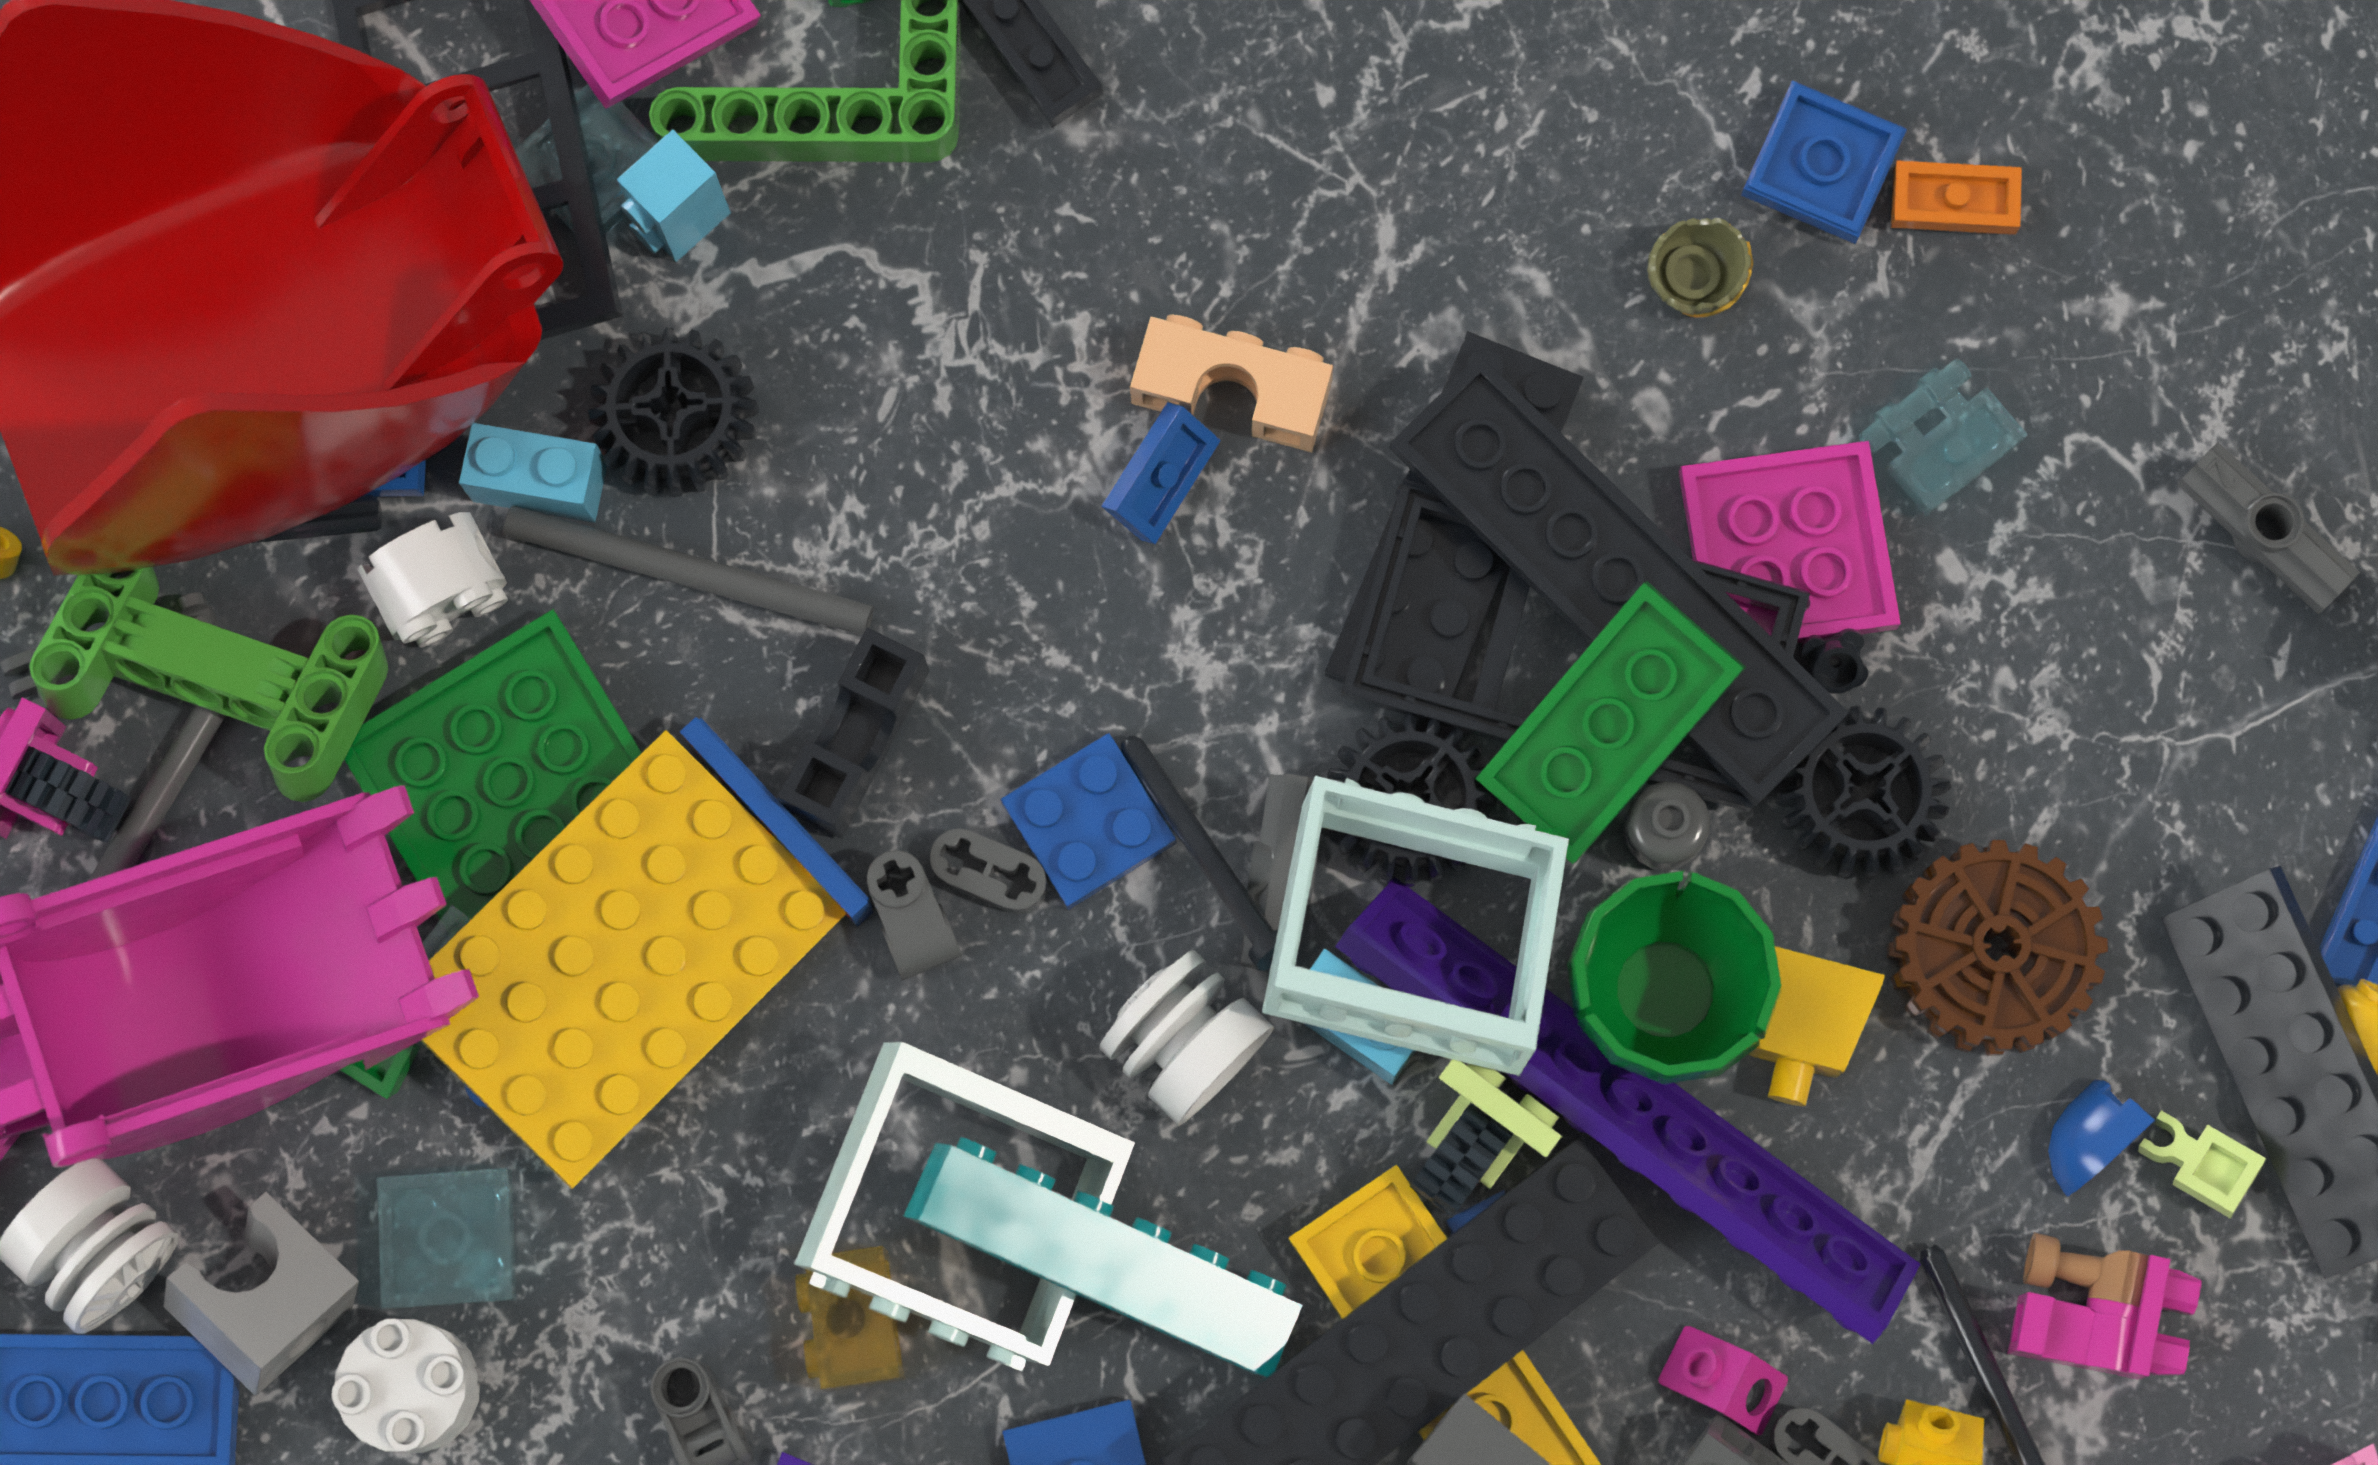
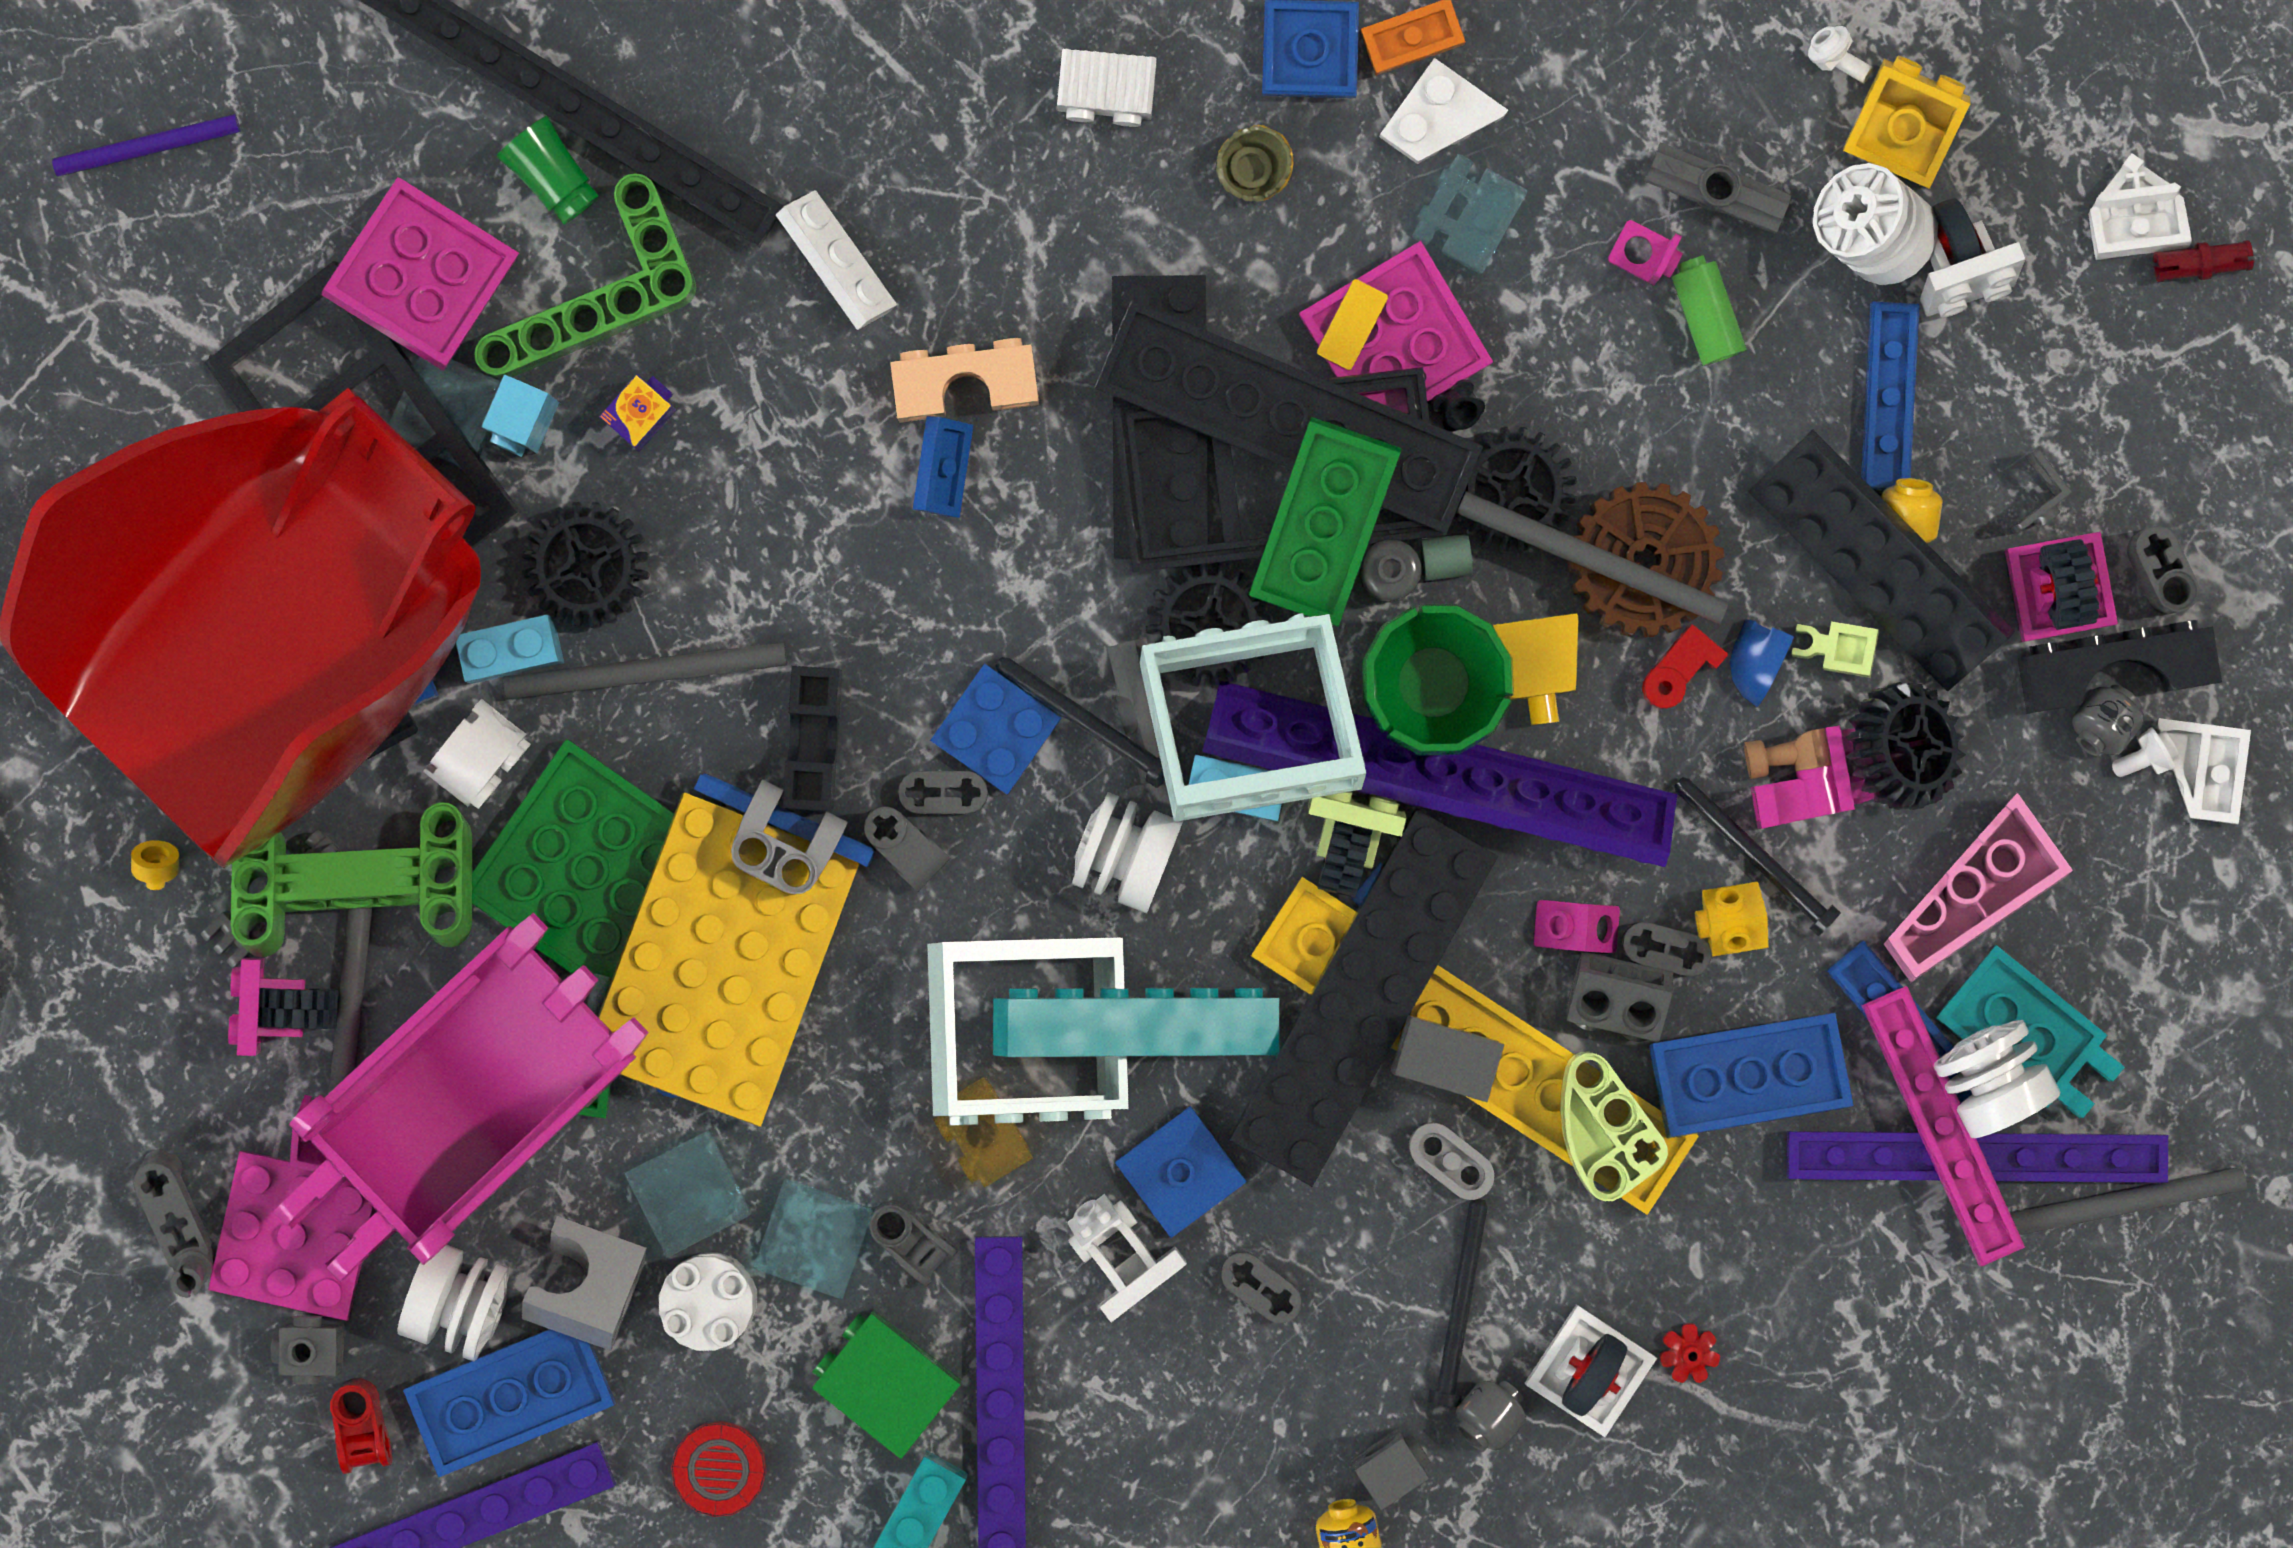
camera: 25 degrees left, 10 degrees up
(578, 1365) = (813, 1238): none -> clear light blue plate
(747, 850) = (779, 853): none -> light grey piece
(820, 256) = (639, 411): none -> brick
(1138, 176) = (836, 259): none -> white plate
(1555, 104) = (1106, 86): none -> white brick
(1741, 506) = (1352, 324): none -> yellow sticker
(1744, 841) = (1446, 557): none -> sand green gear
(1934, 912) = (1592, 557): none -> dark grey piece
(1952, 303) = (1439, 114): none -> white wing
(1967, 1111) = (1667, 680): none -> red leg
(2167, 583) = (1663, 257): none -> dark pink bracket
(2198, 674) = (1708, 311): none -> bright green brick
(2246, 1322) = (1905, 746): none -> black gear

